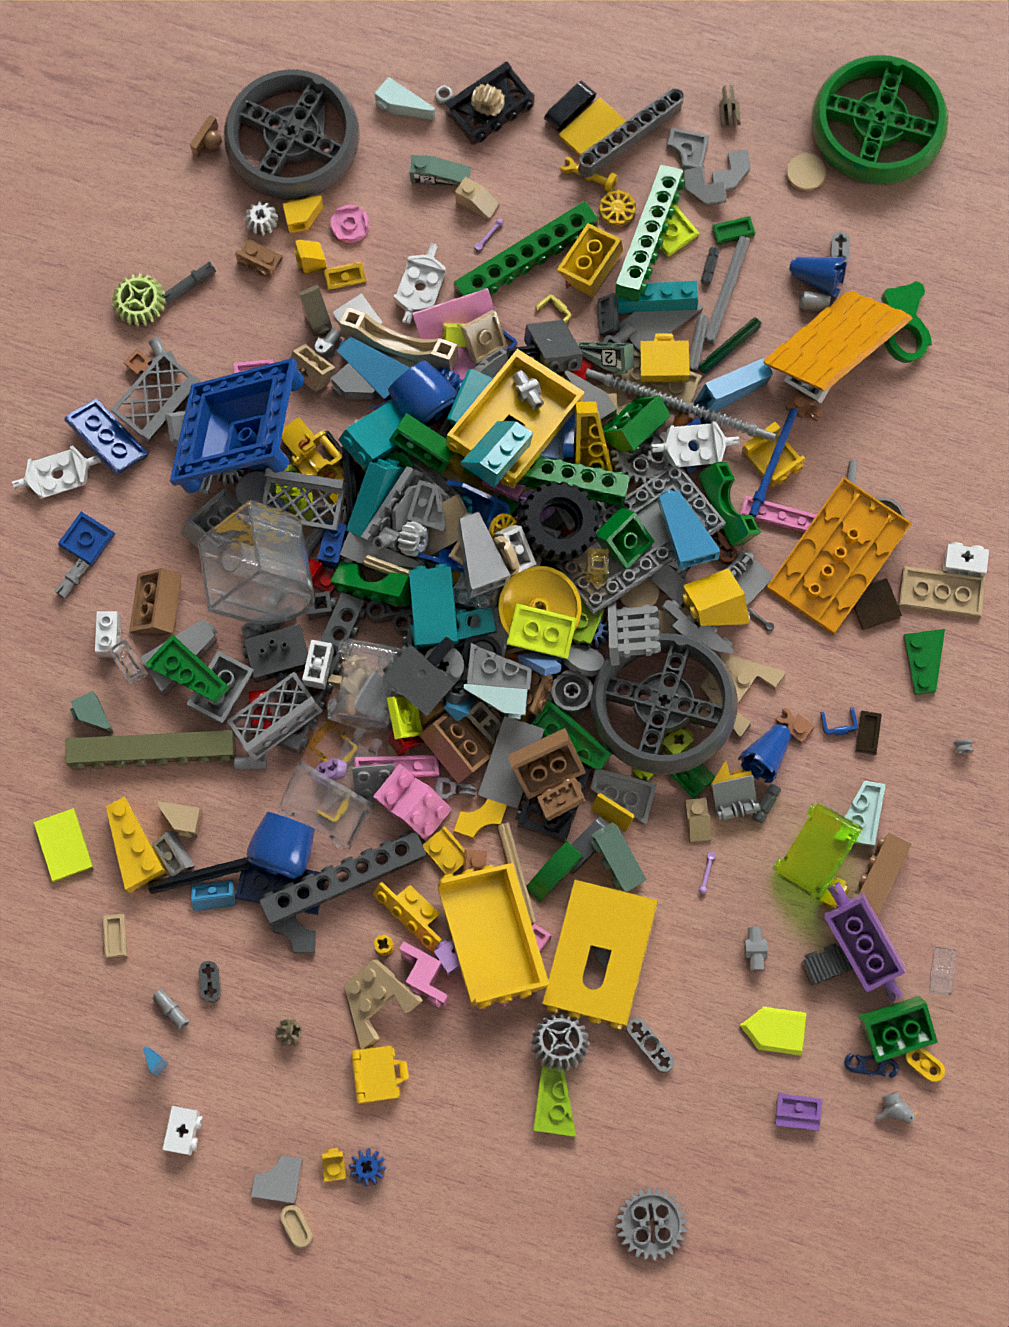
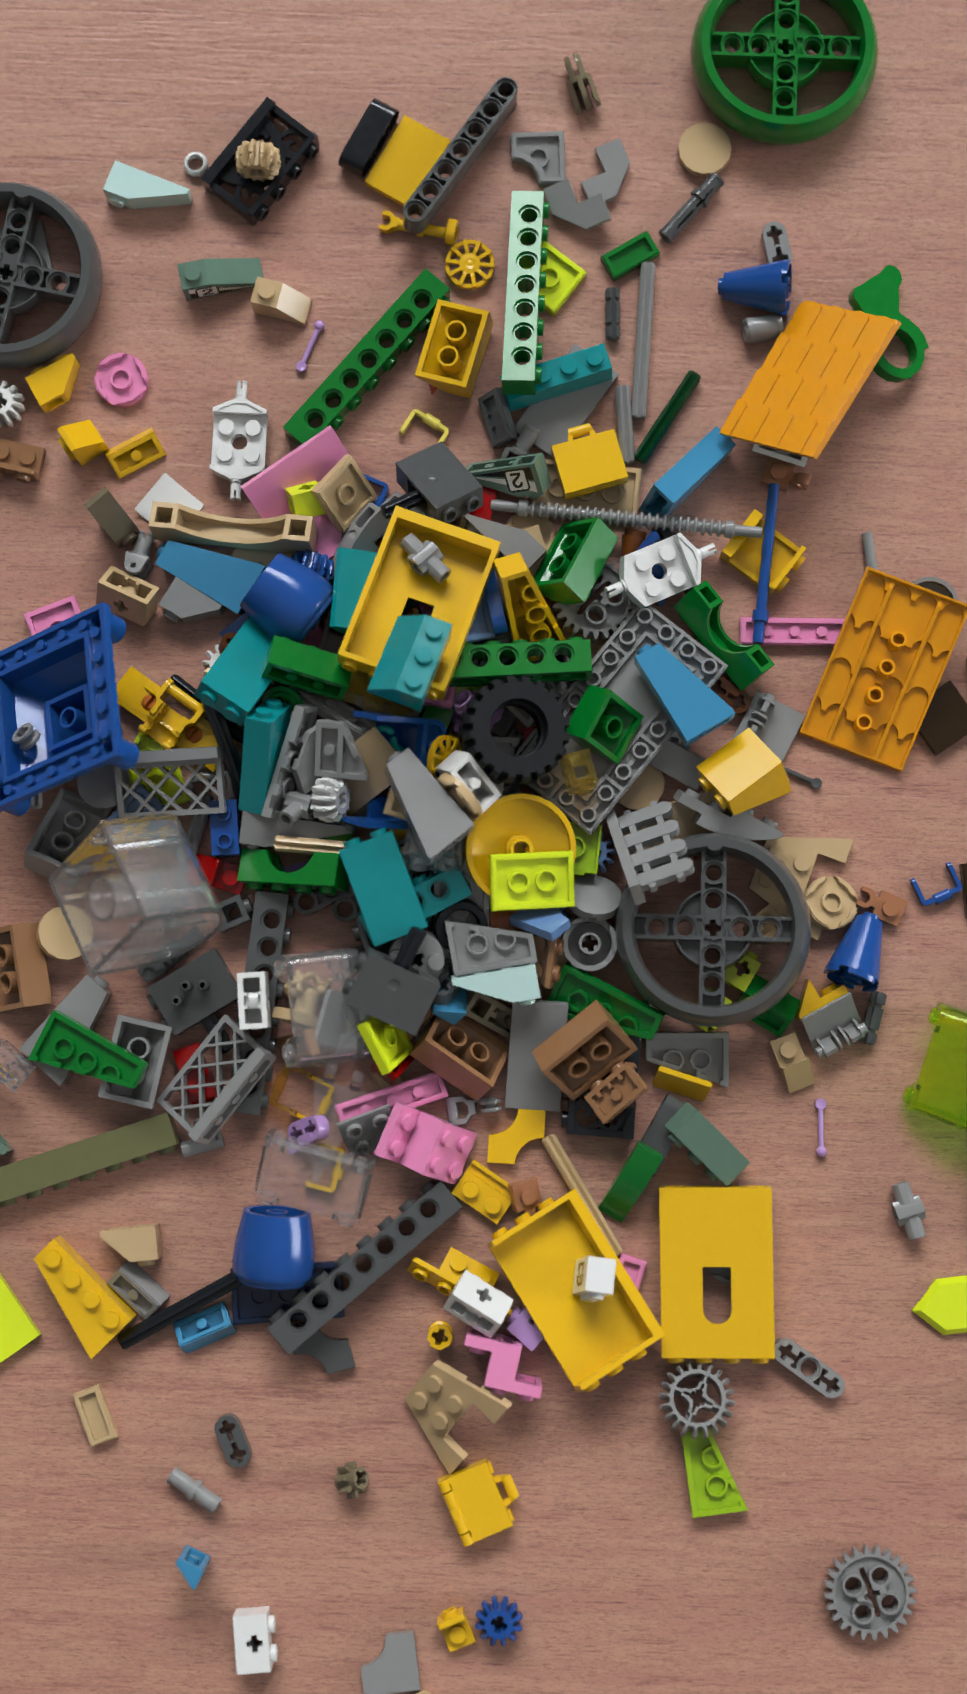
camera: 15 degrees left, 10 degrees up
(191, 588) = (56, 937): none -> tan tile
(211, 439) = (26, 736): none -> light grey bush
(417, 923) = (478, 1304): none -> white brick
(508, 926) = (594, 1278): none -> white brick
(757, 712) = (831, 902): none -> tan tile
(792, 204) = (698, 200): none -> dark grey pin

